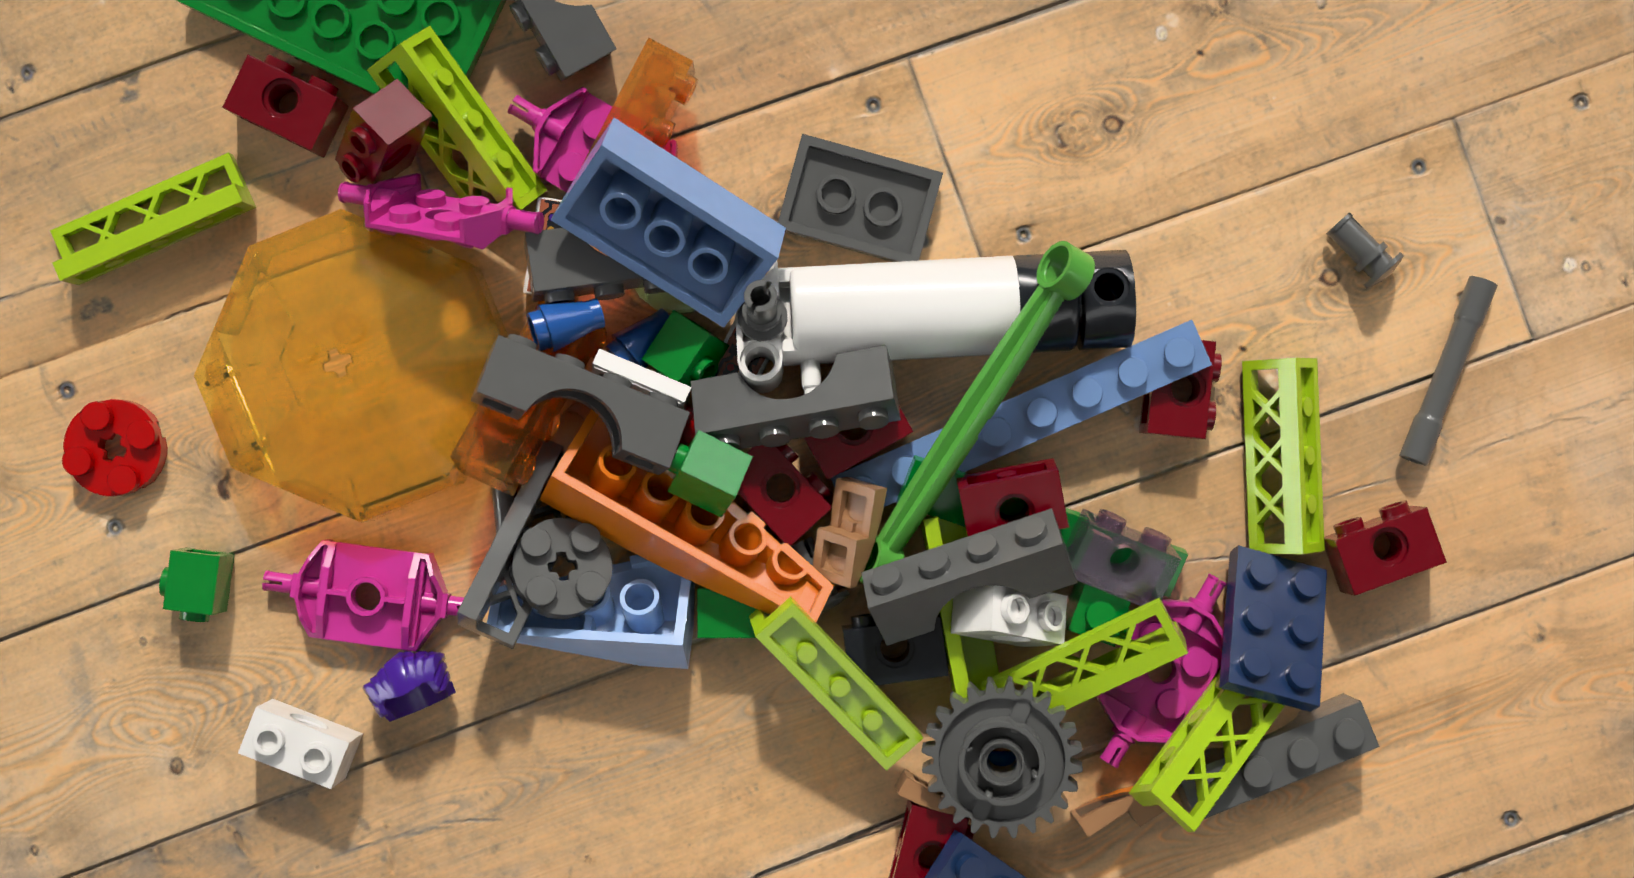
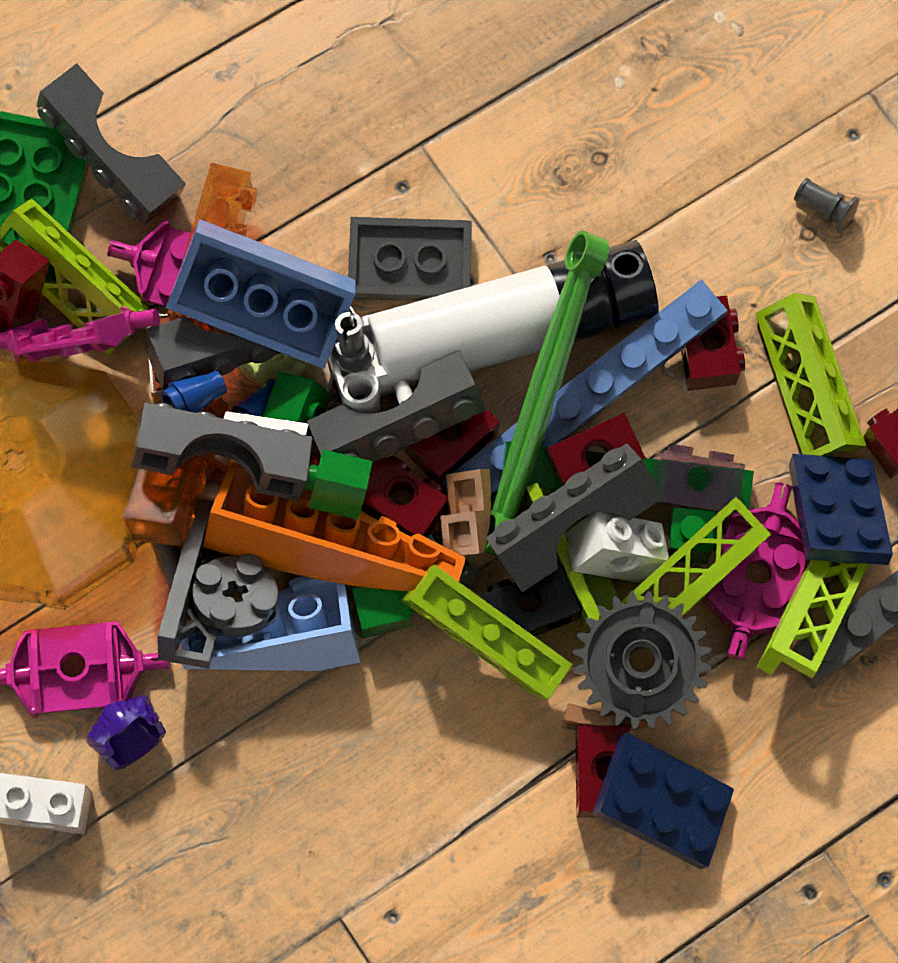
camera: 15 degrees left, 15 degrees down
(1109, 806) = (765, 686): medium nougat slope -> none

